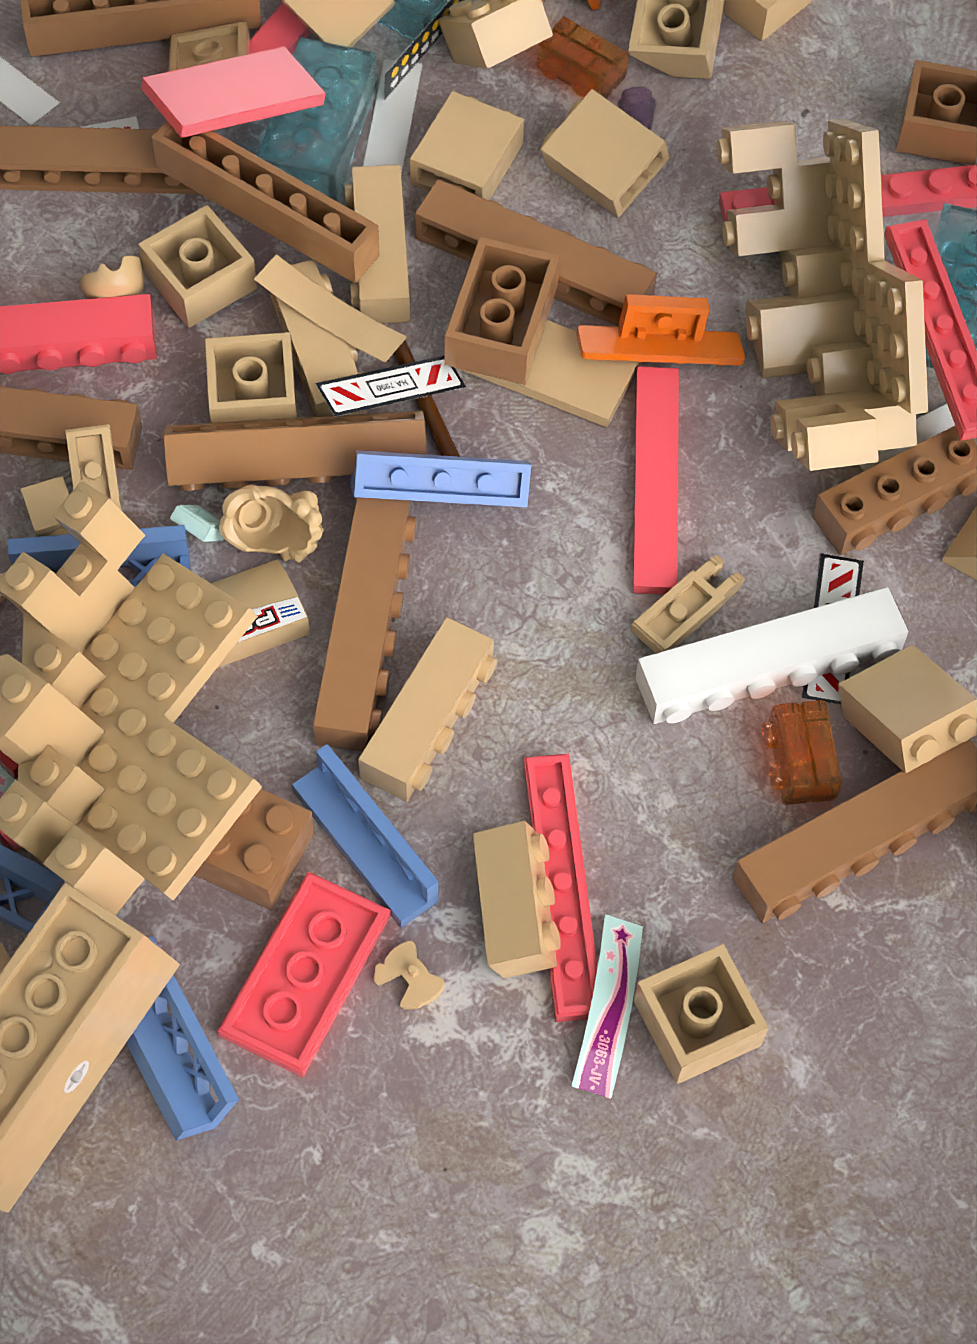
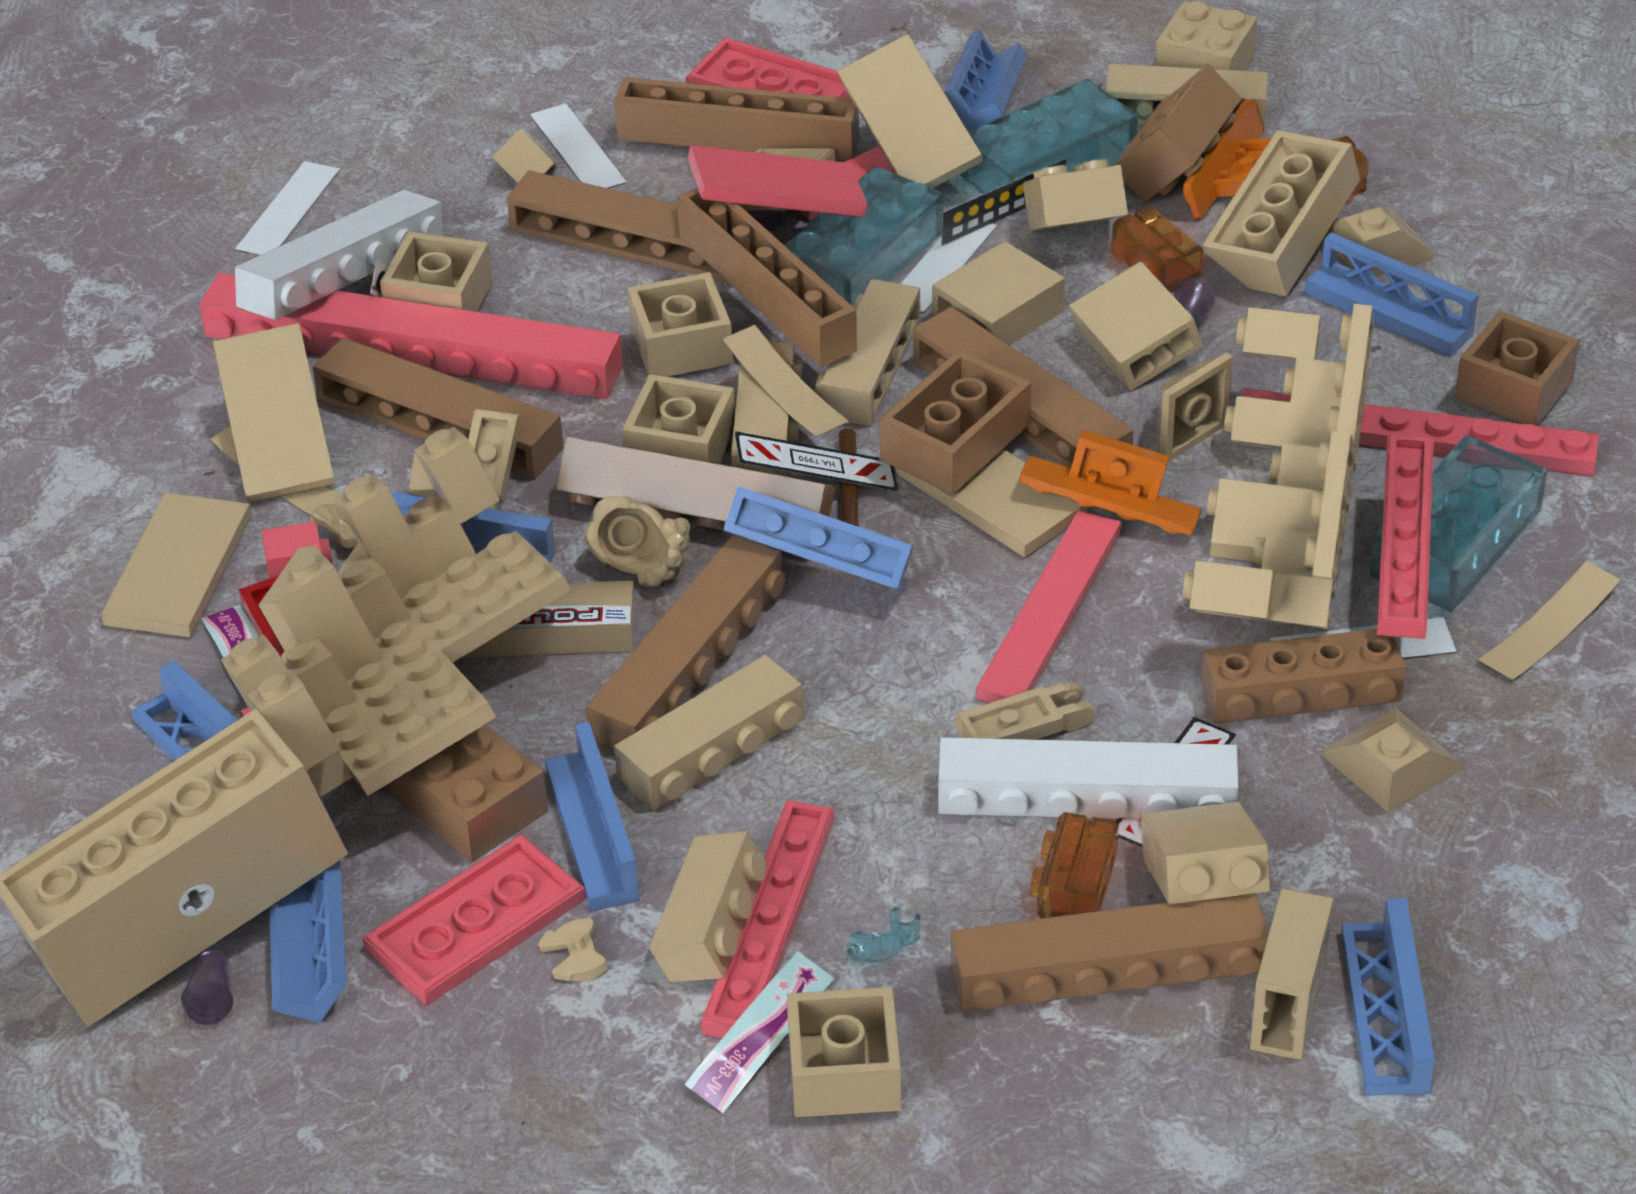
camera: 25 degrees right, 20 degrees down
(105, 1136) = (208, 989): none -> clear purple cone
(123, 282) = (606, 315): tan hair -> none
(198, 522) = (568, 526): light aqua tile -> none
(672, 884) = (880, 947): none -> clear light blue arm
(688, 226) = (1194, 405): none -> tan slope
(803, 62) = (1394, 304): none -> medium blue fence

